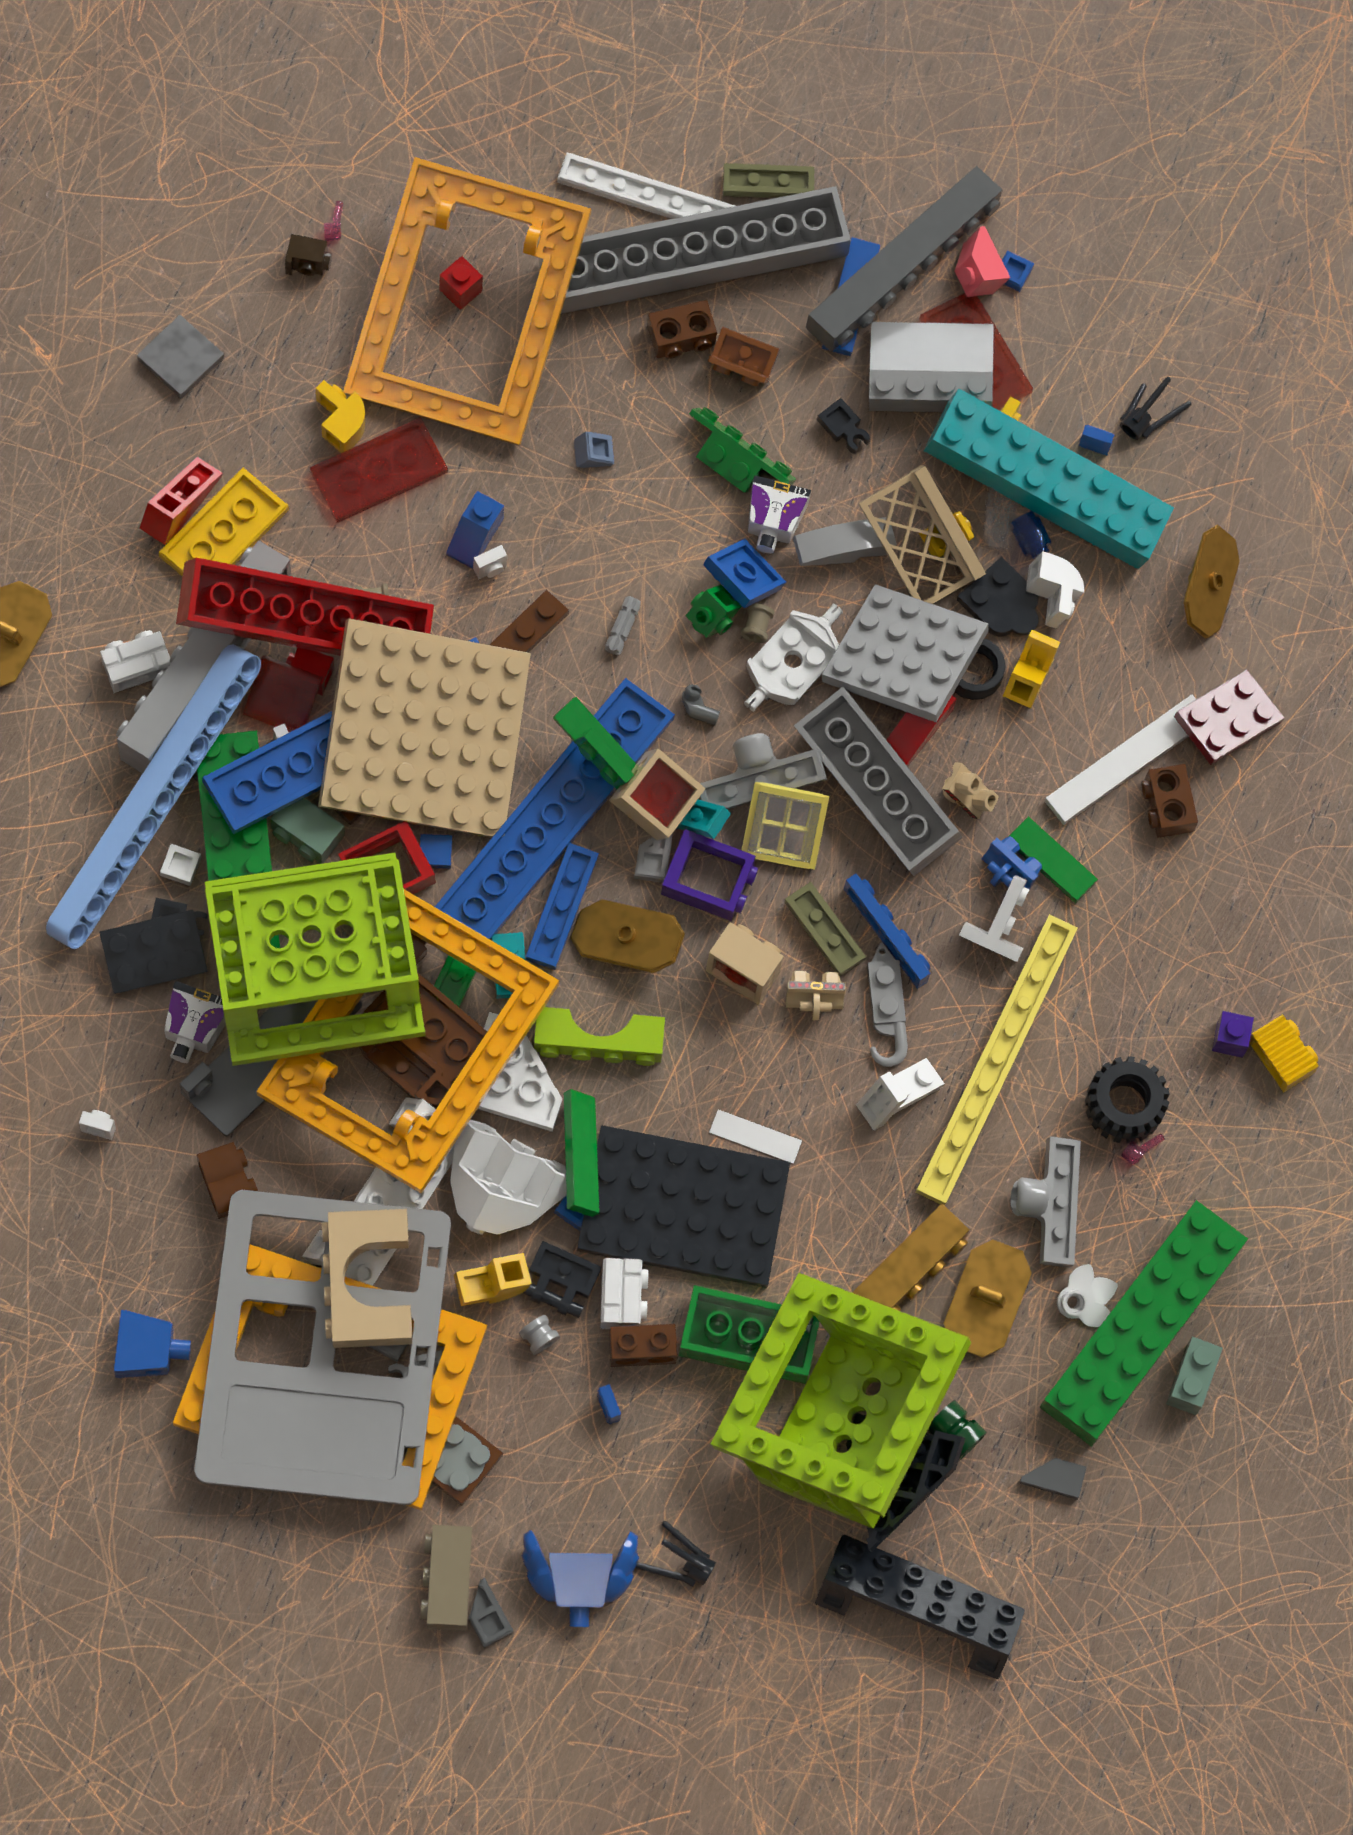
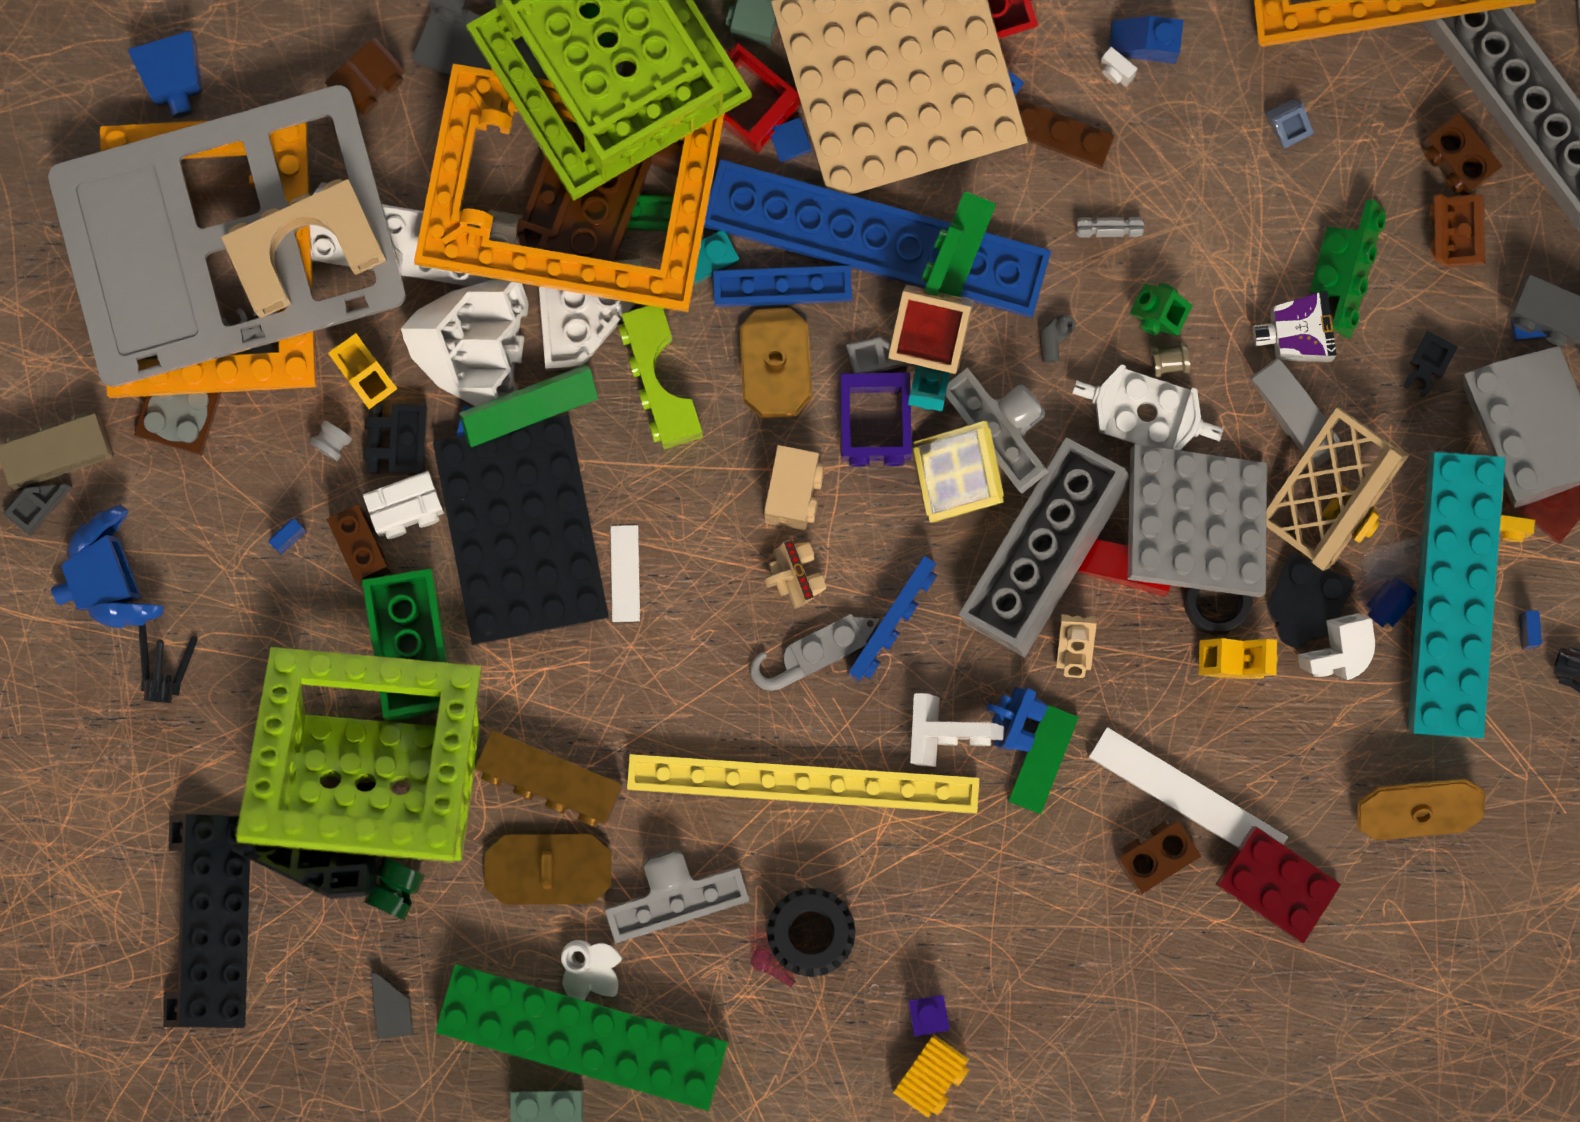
camera: 80 degrees right, 10 degrees up
(744, 573) = (1216, 324): blue plate -> none
(825, 929) = (868, 556): olive plate -> none
(897, 1092) = (726, 699): white bracket -> none

